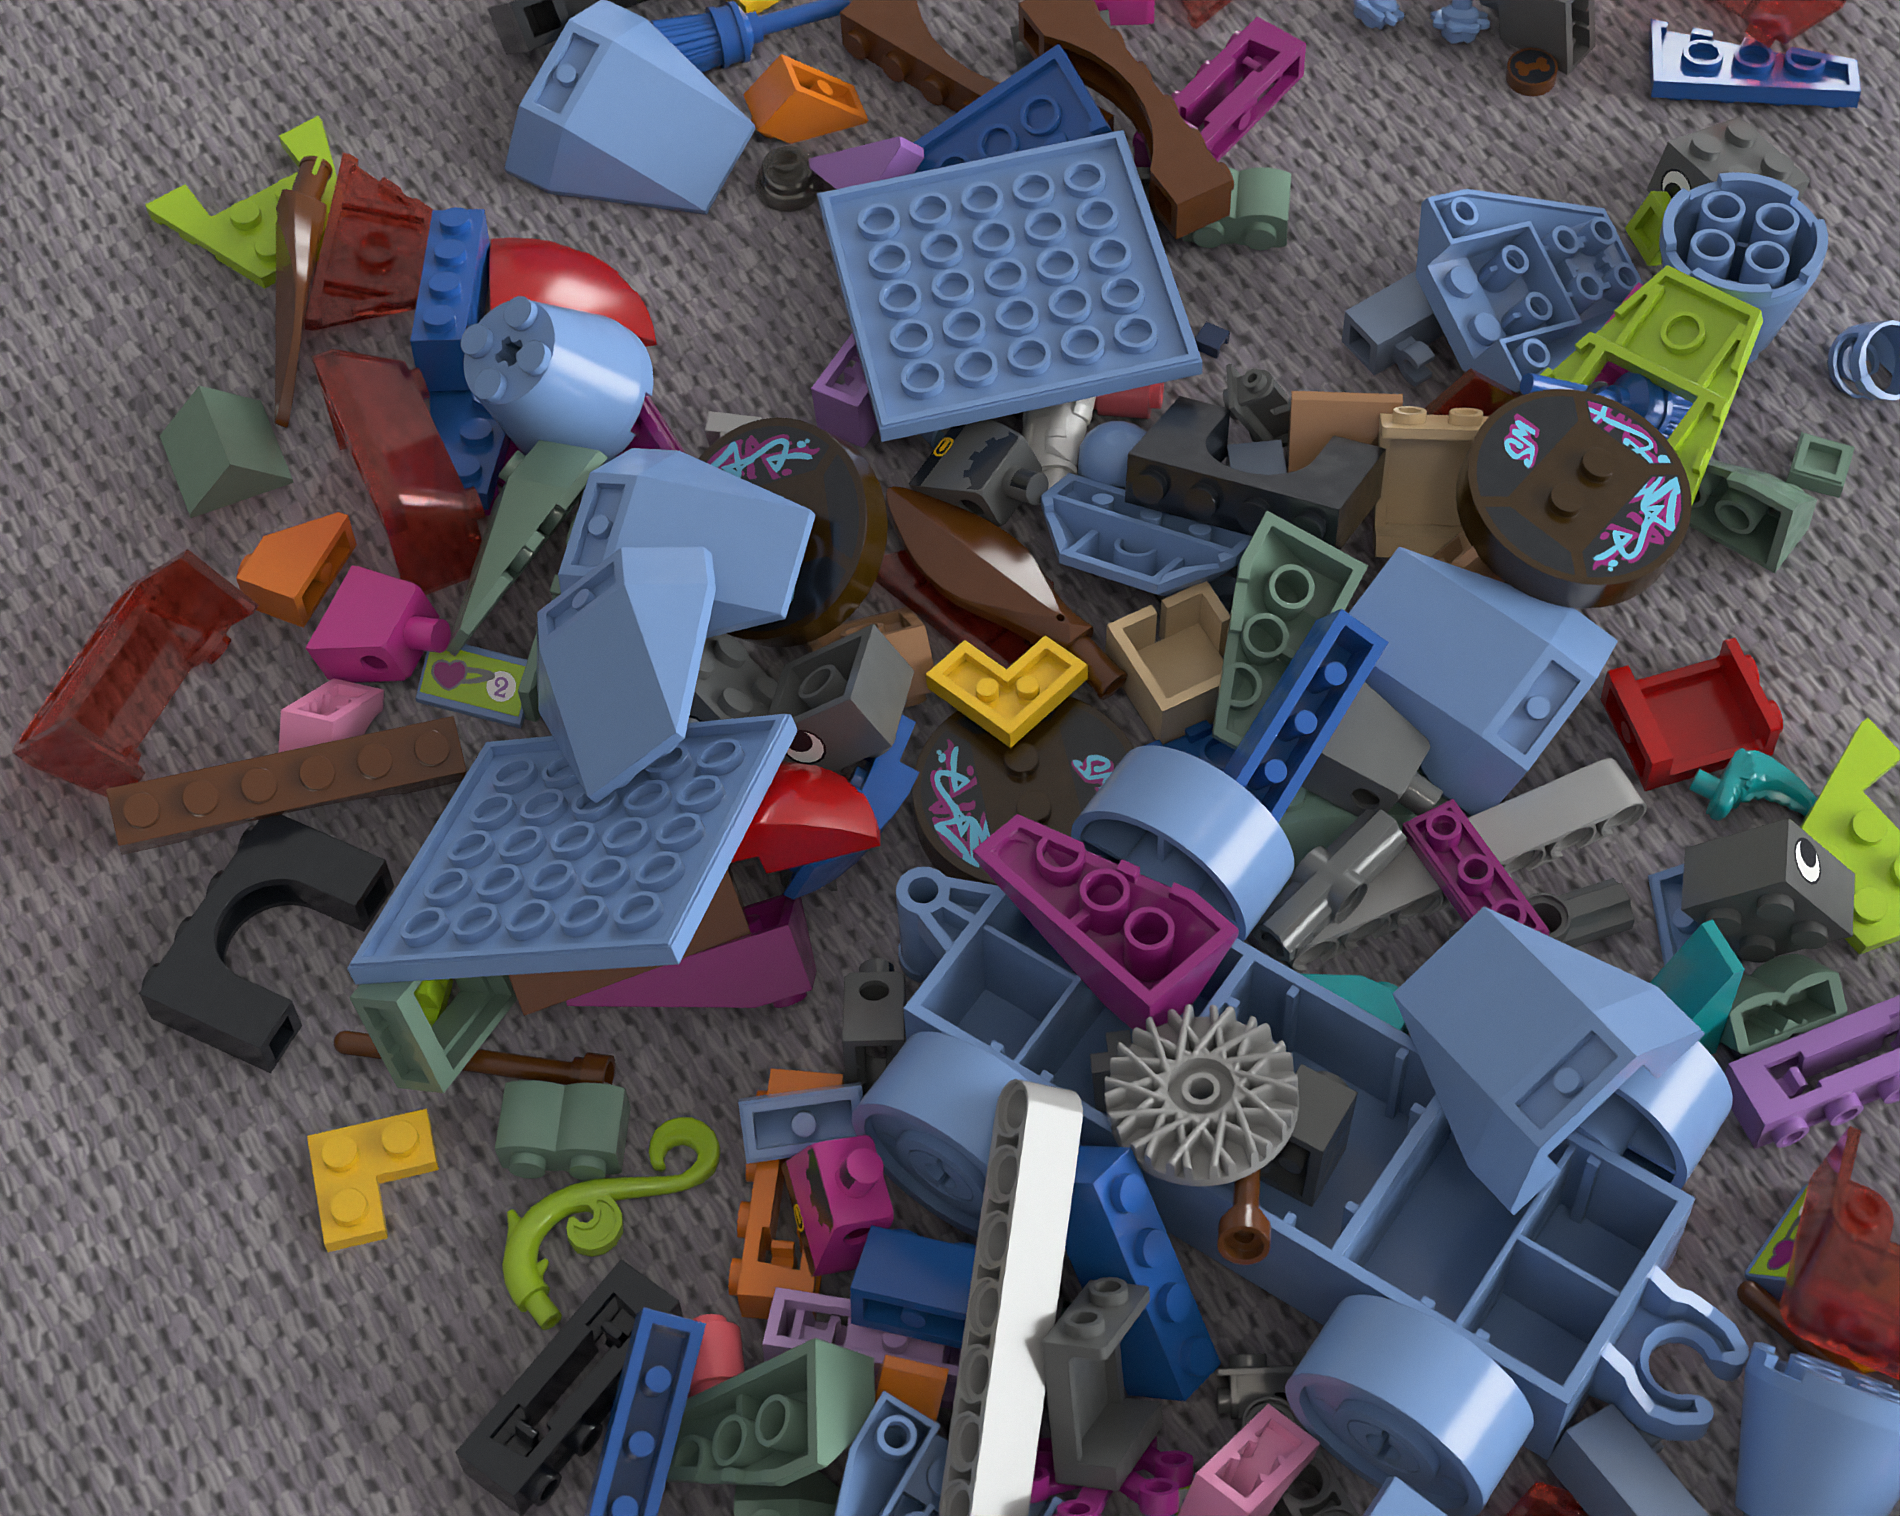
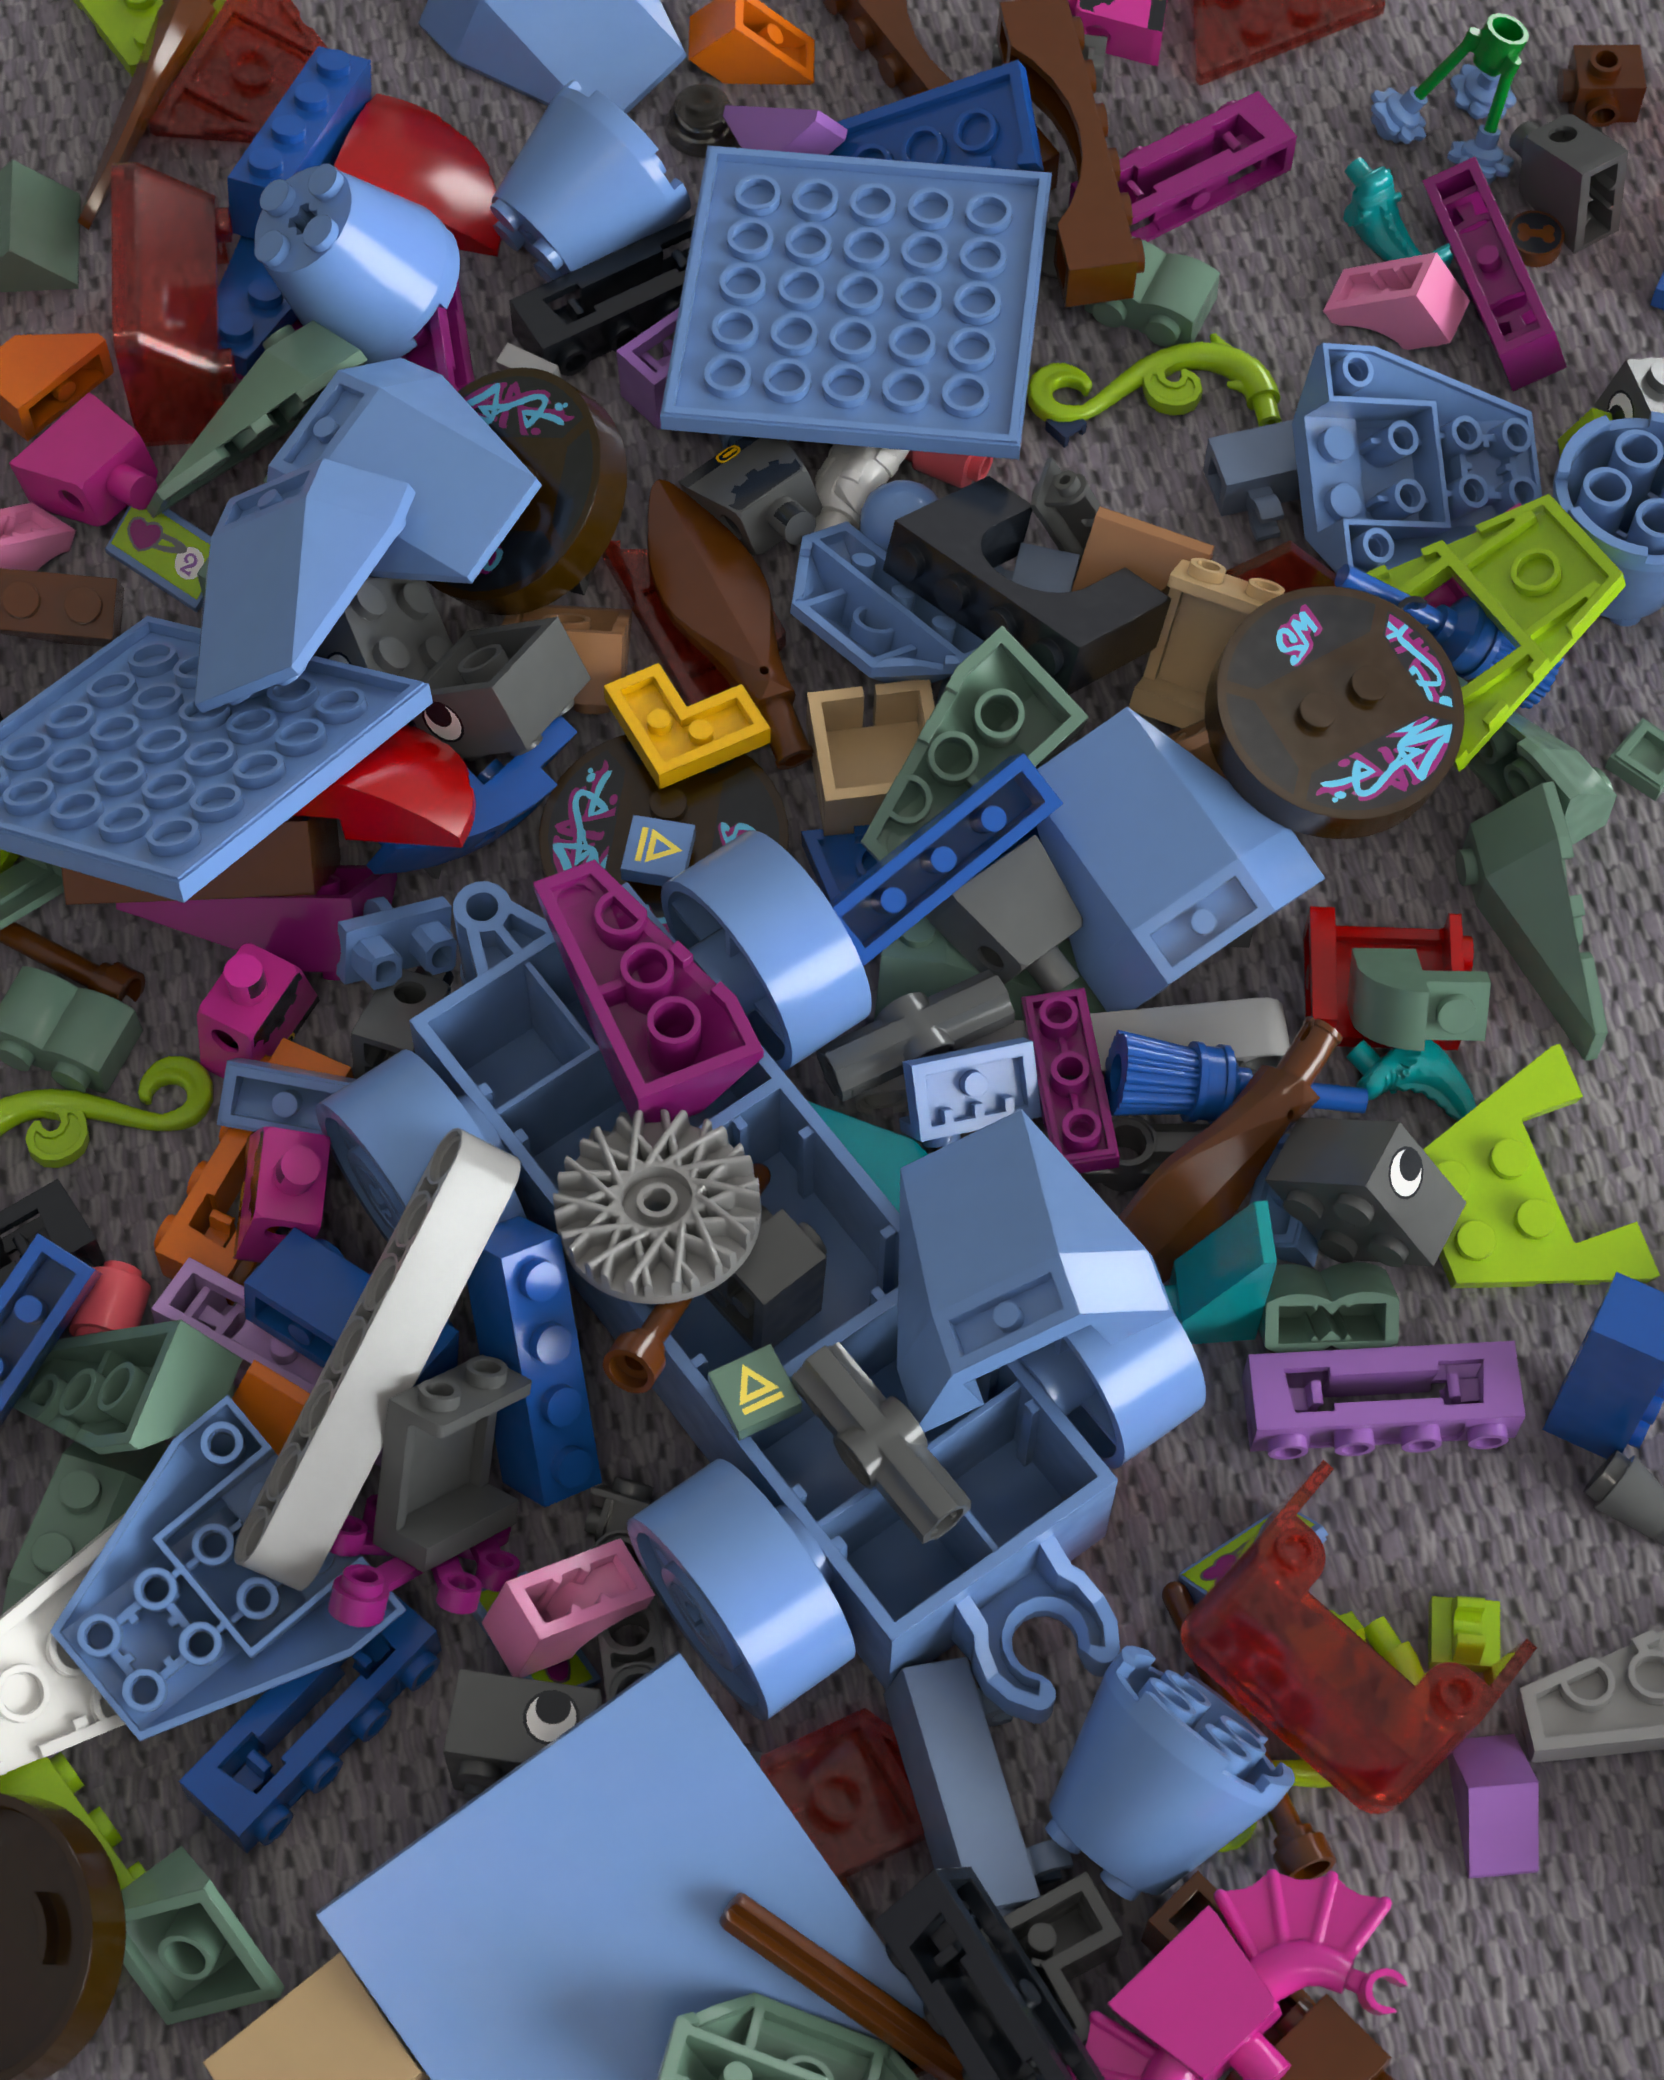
camera: 15 degrees right, 5 degrees up
(723, 260) = (584, 186): none -> medium blue cone
(731, 1046) = (253, 1004): none -> dark pink torso
(786, 340) = (616, 302): none -> black brick
(838, 950) = (396, 938): none -> medium blue hips
(1036, 796) = (657, 850): none -> medium blue tile
(1292, 289) = (1166, 397): none -> lime plant
(1354, 1228) = (754, 1392): none -> sand green tile
(1396, 918) = (969, 1090): none -> medium blue bracket
(1399, 97) = (1377, 217): none -> teal animal
(1450, 151) = (1403, 299): none -> bright pink arch
(1486, 1233) = (881, 1442): none -> dark grey piece
(1519, 108) = (1494, 274): none -> magenta brick
(1588, 845) = (1191, 1080): none -> blue piece
(1635, 908) = (1215, 1170): none -> reddish brown animal
(1731, 727) = (1405, 1005): none -> sand green brick
(1777, 603) = (1521, 888): none -> sand green wedge

